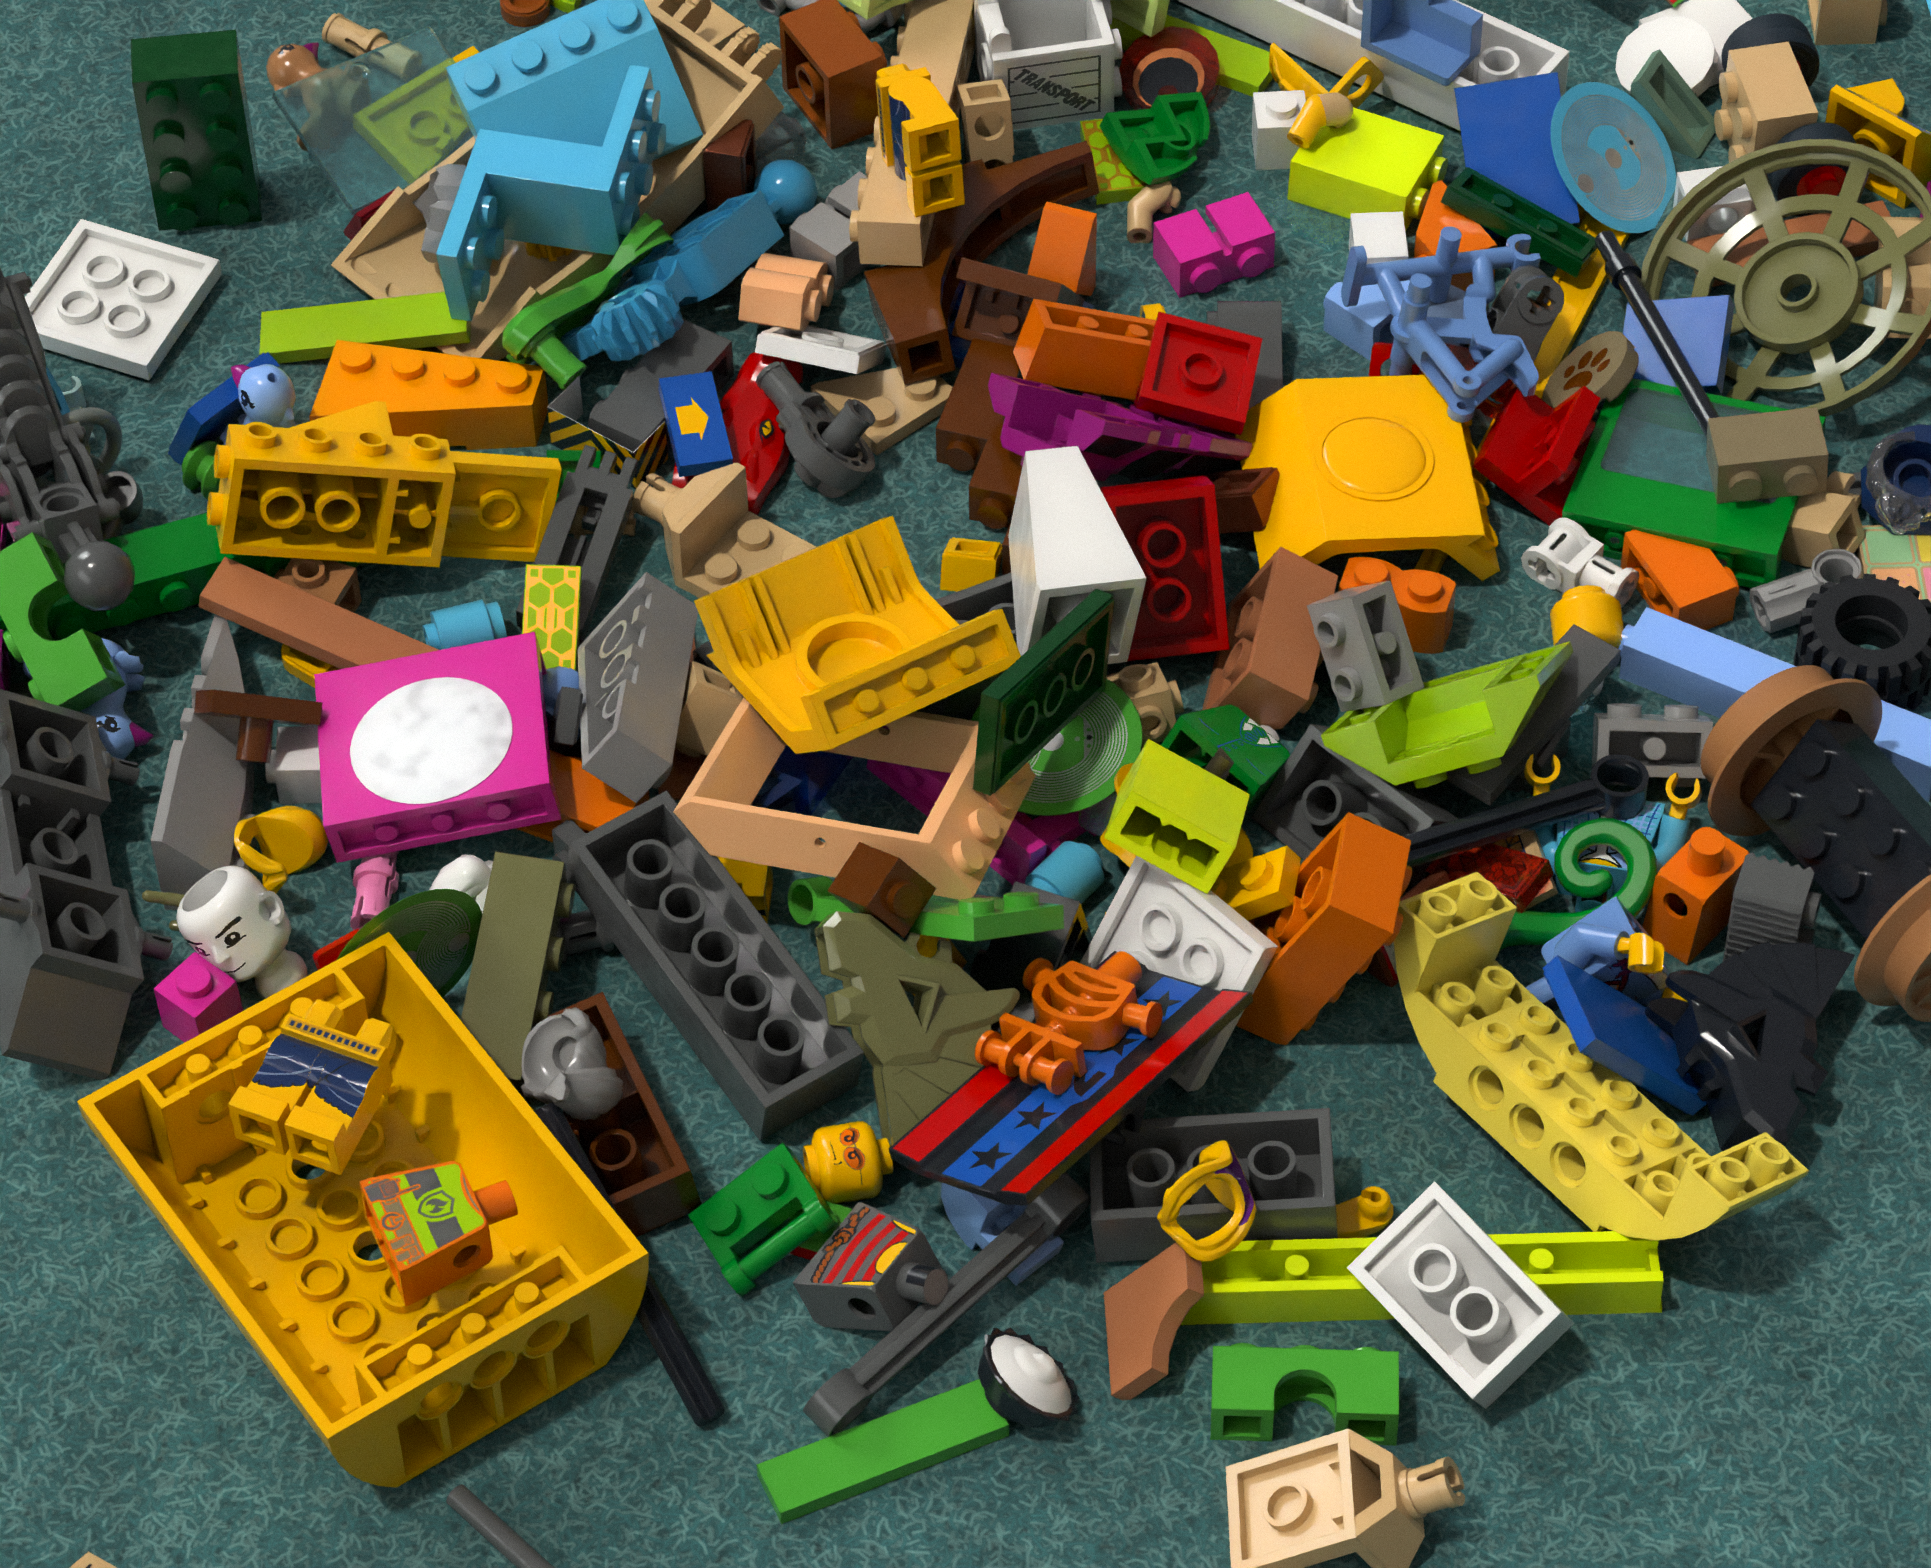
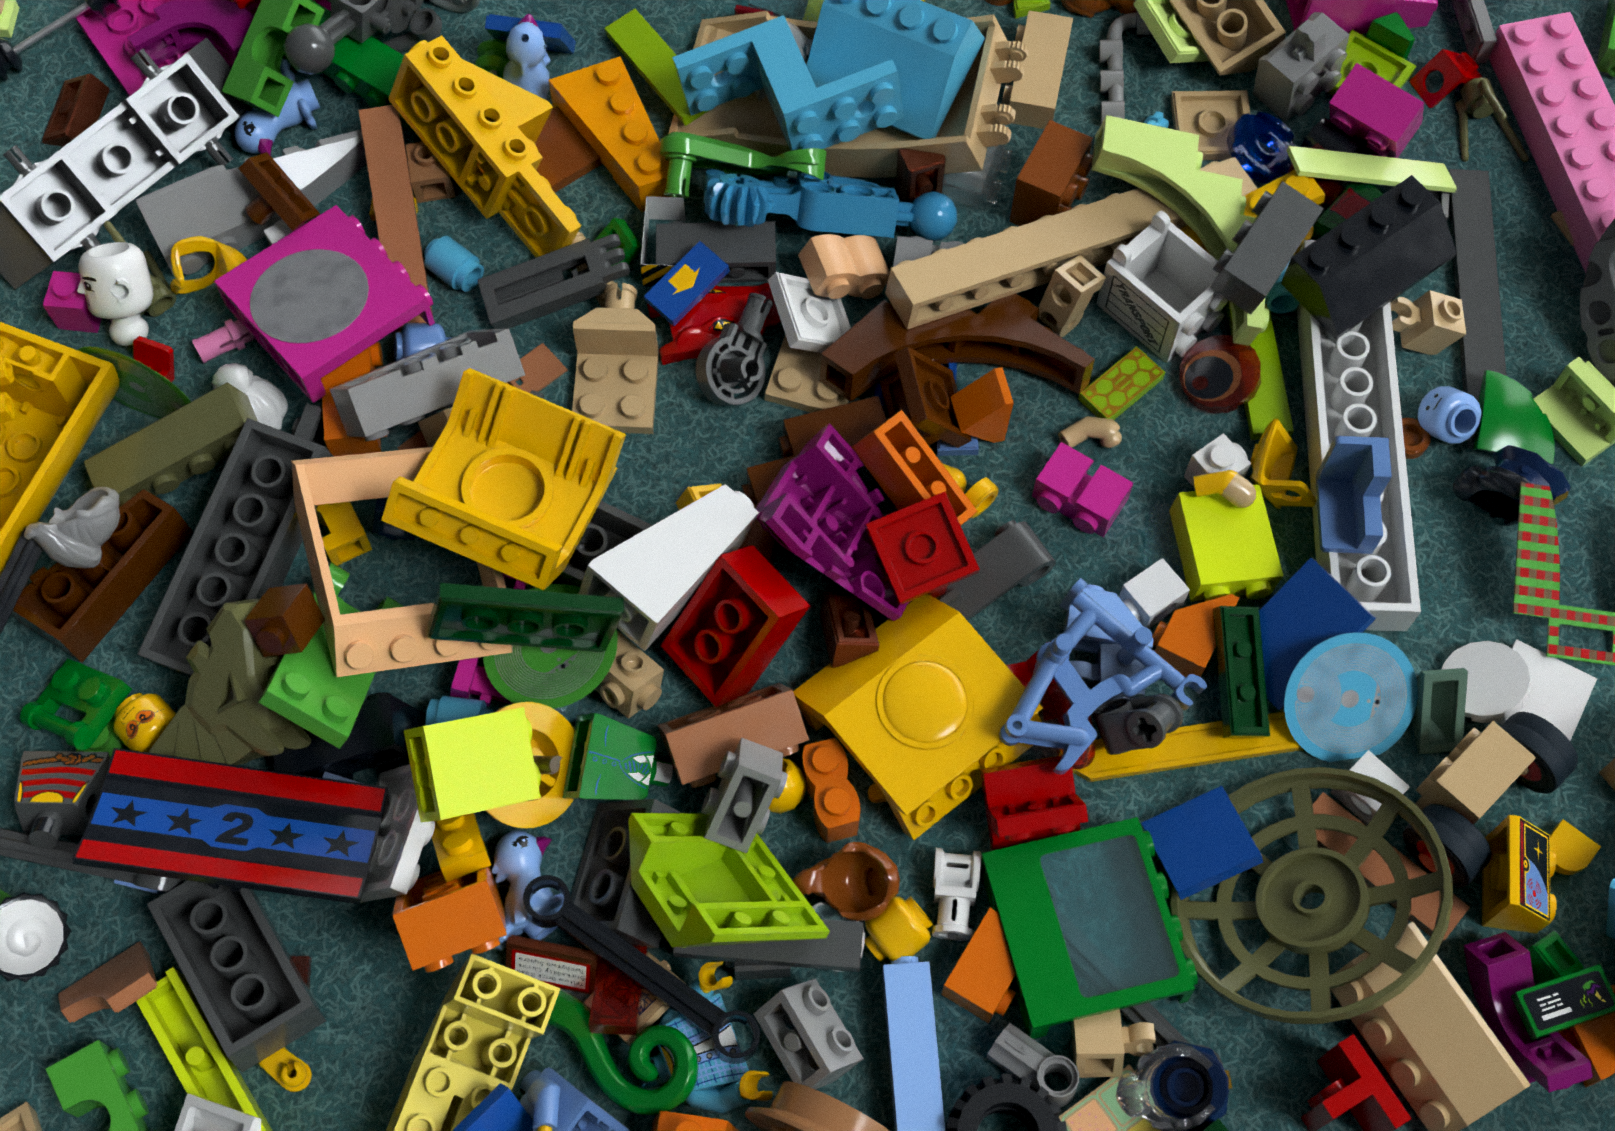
camera: 55 degrees right, 15 degrees up
(553, 611) = (479, 301): tile -> none
(565, 719) = (383, 356): dark grey tile -> none
(920, 138) = (961, 267): yellow hips -> none
(1073, 1013) = (240, 789): orange piece -> none
(1159, 140) = (1152, 402): green brick -> none
(1226, 1180) = (198, 977): yellow piece -> none
(1519, 615) = (853, 881): none -> dark orange hair
(1601, 364) = (1127, 801): dark tan tile -> none
(1626, 276) = (1240, 769): black bar -> none
(1767, 455) = (1110, 970): dark tan brick -> none

